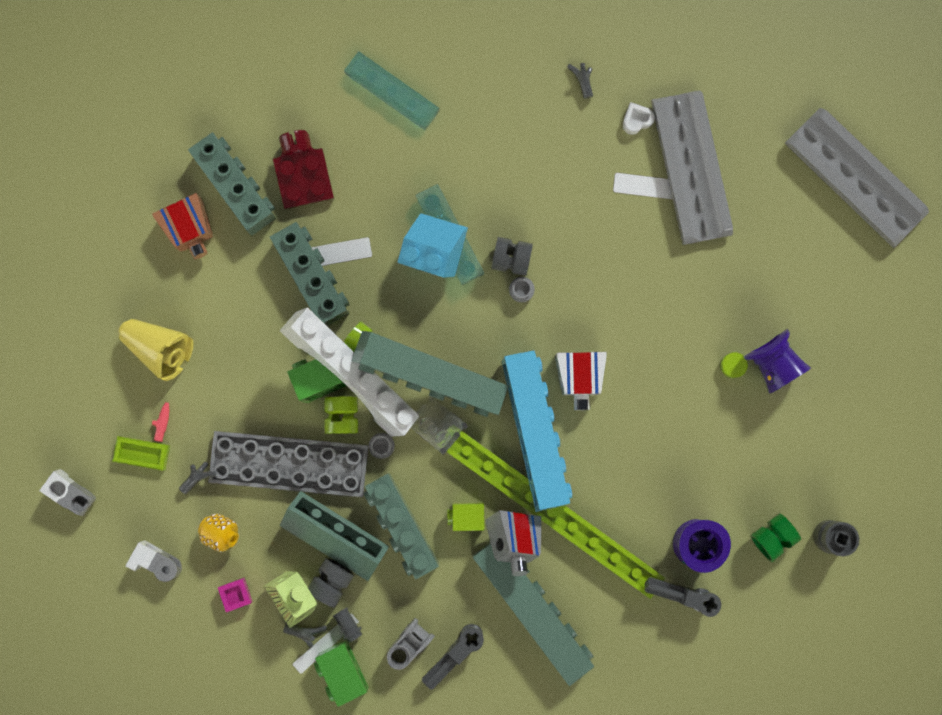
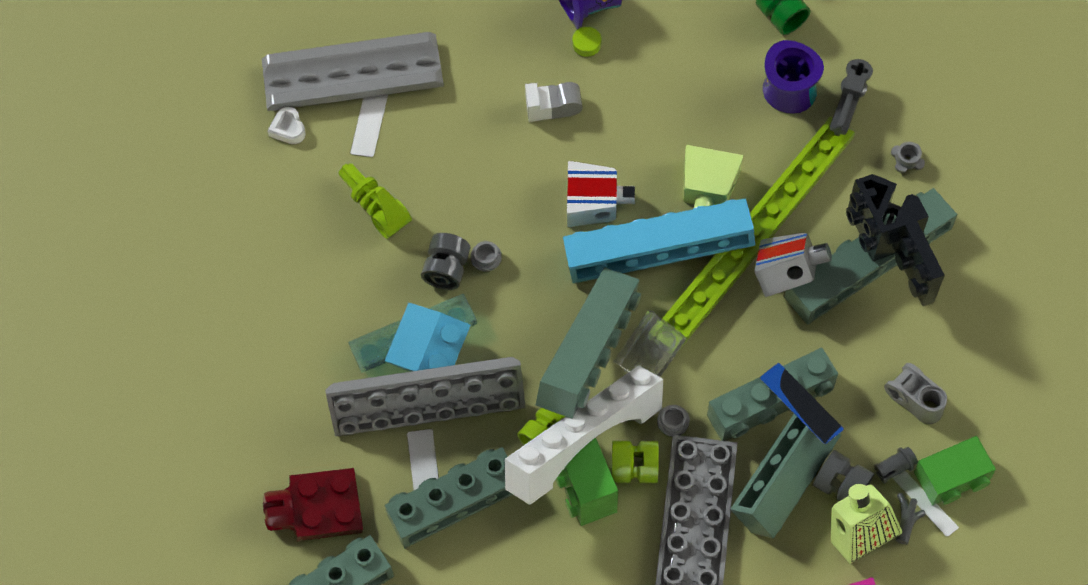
camera: 80 degrees left, 20 degrees down
(383, 548) = (801, 403): none -> black sticker
(387, 246) = (425, 396): none -> light grey plate
(391, 90) = (220, 397): clear light blue plate -> none
(455, 655) = (922, 338): dark grey connector -> none
(466, 516) = (761, 322): lime brick -> none
(553, 207) = (385, 211): none -> lime piece
(559, 611) = (904, 238): none -> black piece
(584, 79) = (232, 180): dark grey bar -> none
(599, 472) = (709, 175): none -> yellowish green torso
(638, 648) = (911, 150): none -> light grey plate
(670, 337) = (552, 101): none -> leg

